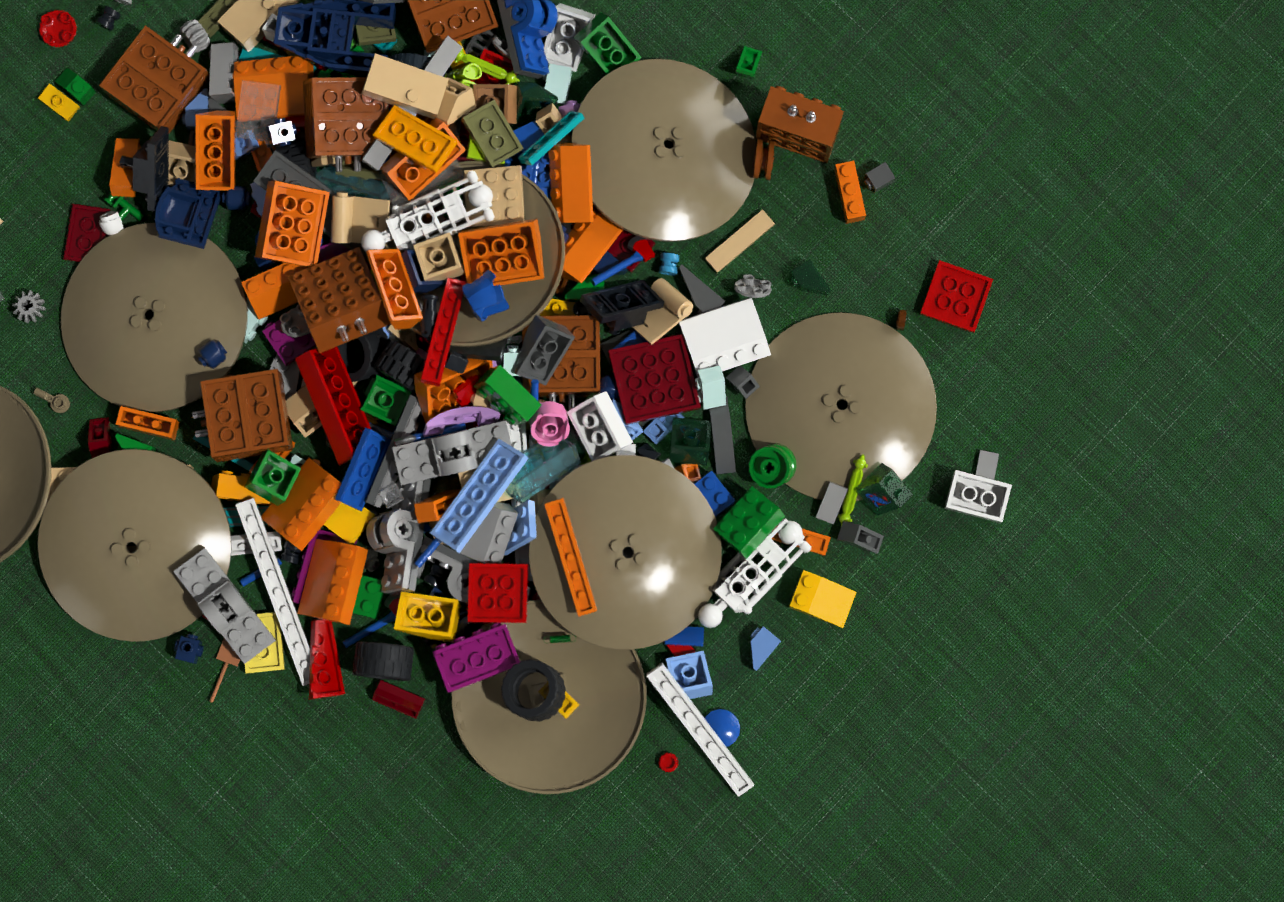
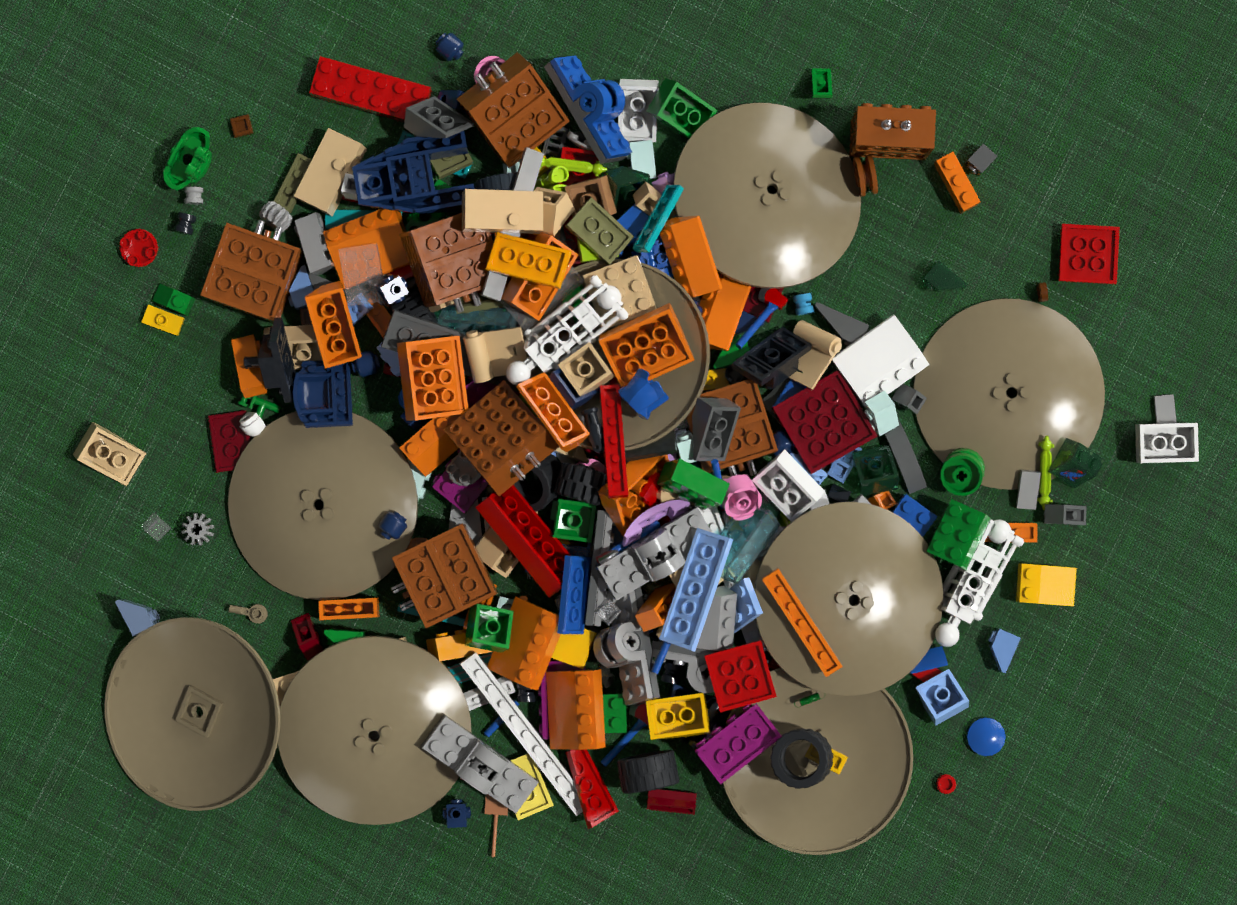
camera: 20 degrees left, 5 degrees up
(456, 362) = (636, 466): black slope -> none
(700, 729) = (969, 746): white plate -> none
(739, 241) = (864, 261): tan tile -> none
(752, 287) = (891, 303): light grey dish -> none

